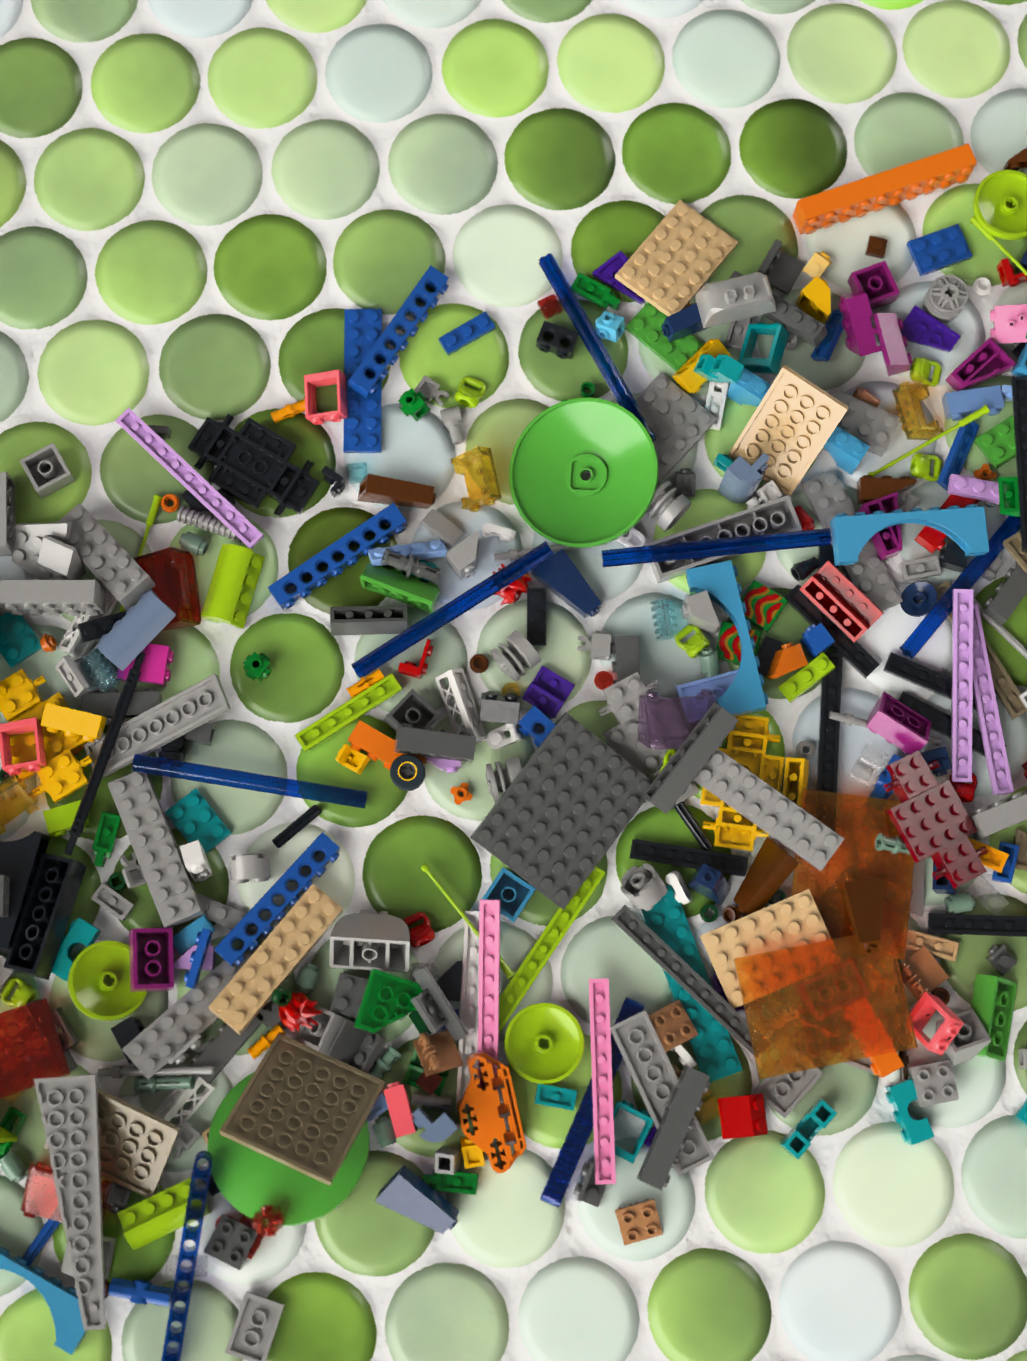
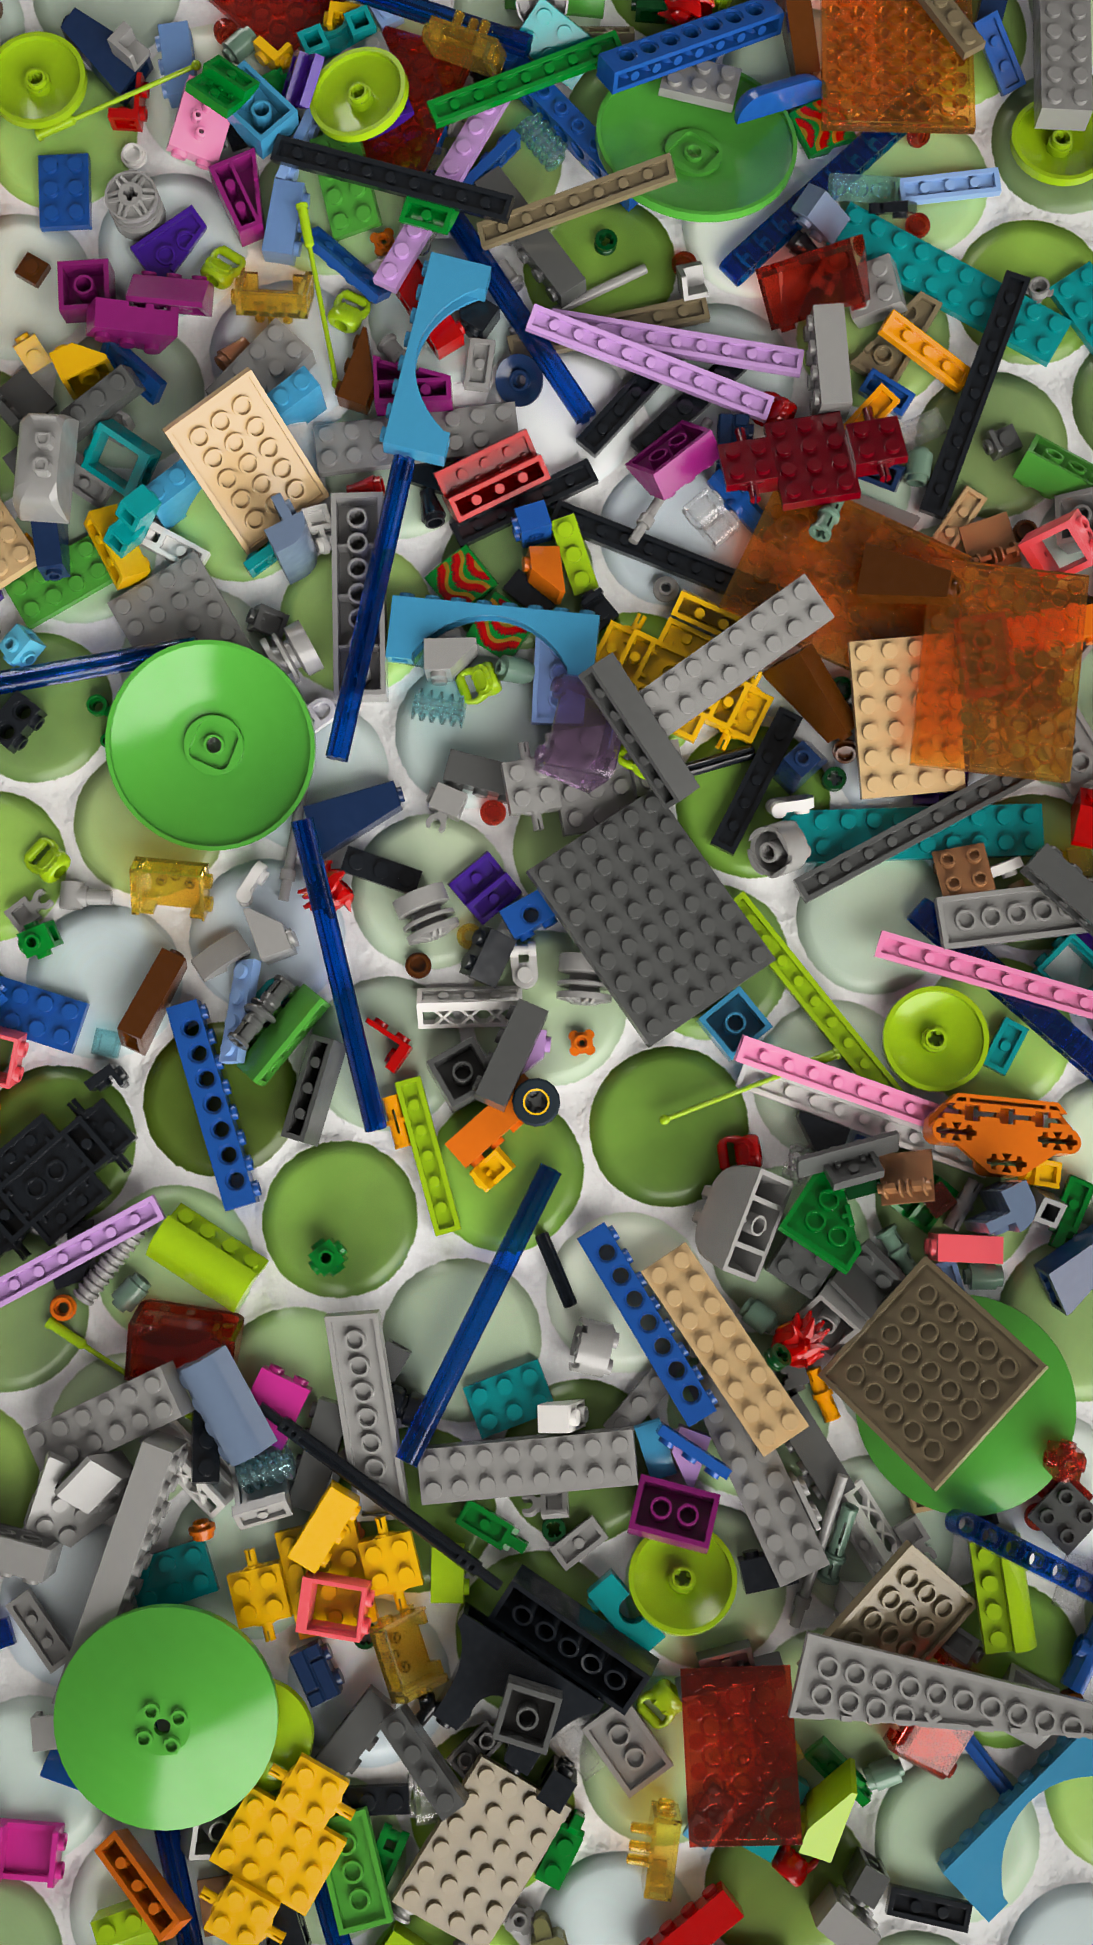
camera: 65 degrees left, 5 degrees up
(774, 709) = (600, 605): none -> black bracket

